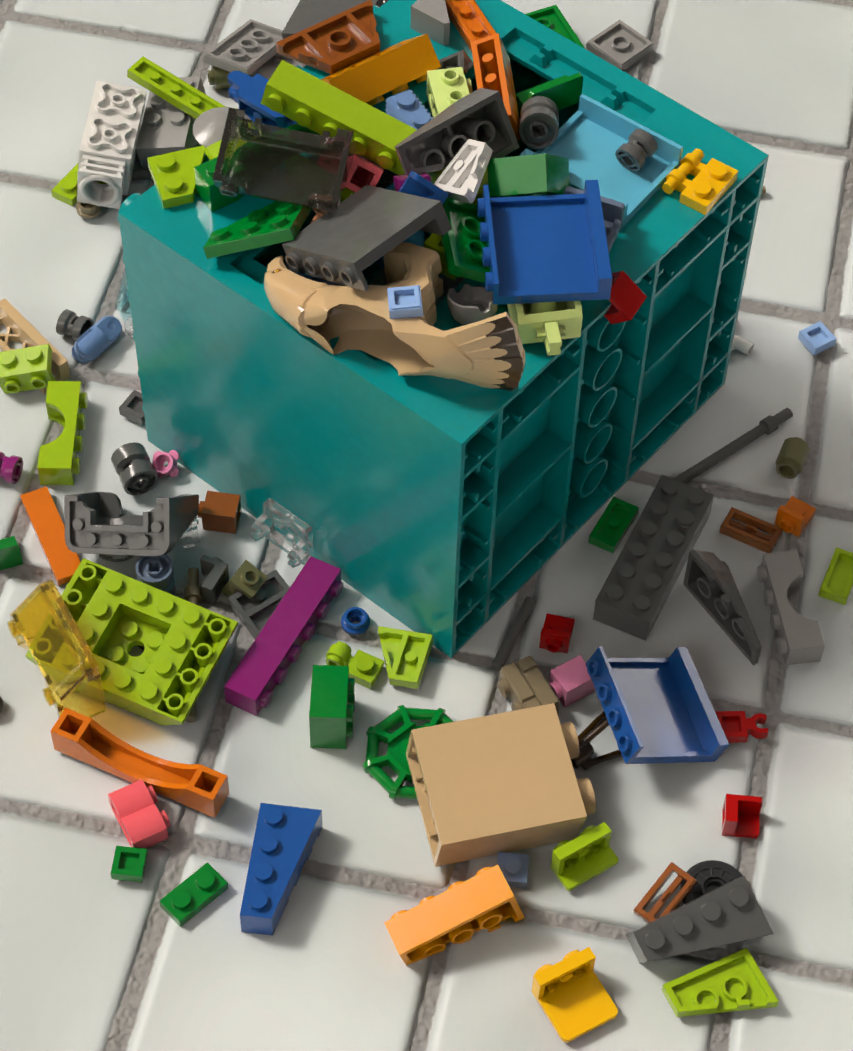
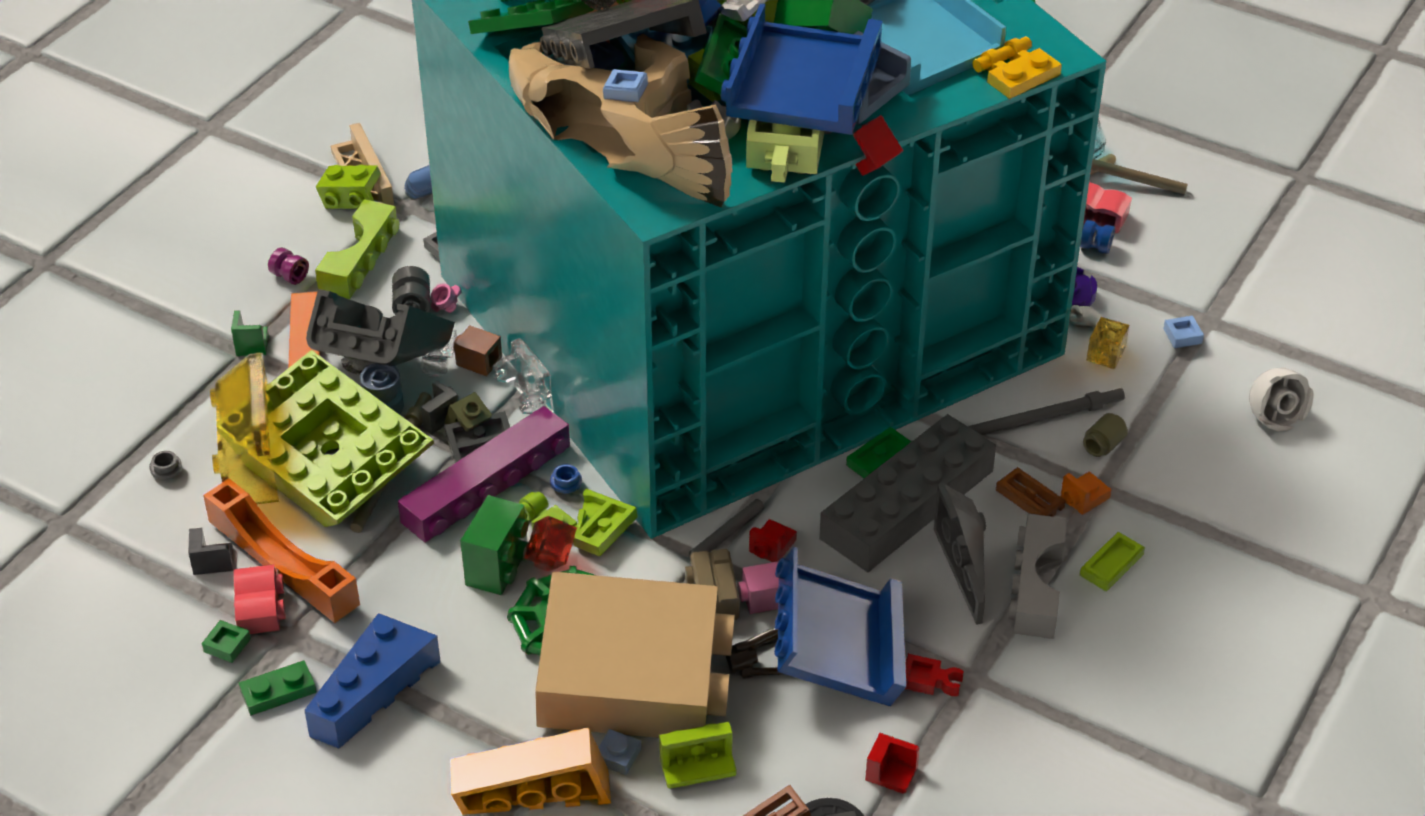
camera: 20 degrees right, 10 degrees down
(72, 325) = (412, 158): dark grey wheel -> none
(74, 783) = (208, 558): none -> black panel
(375, 691) = (550, 543): none -> clear red brick
(620, 45) = (1093, 30): light grey plate -> none
(636, 150) = (954, 24): dark grey wheel -> none
(760, 365) = (1107, 342): none -> clear yellow brick

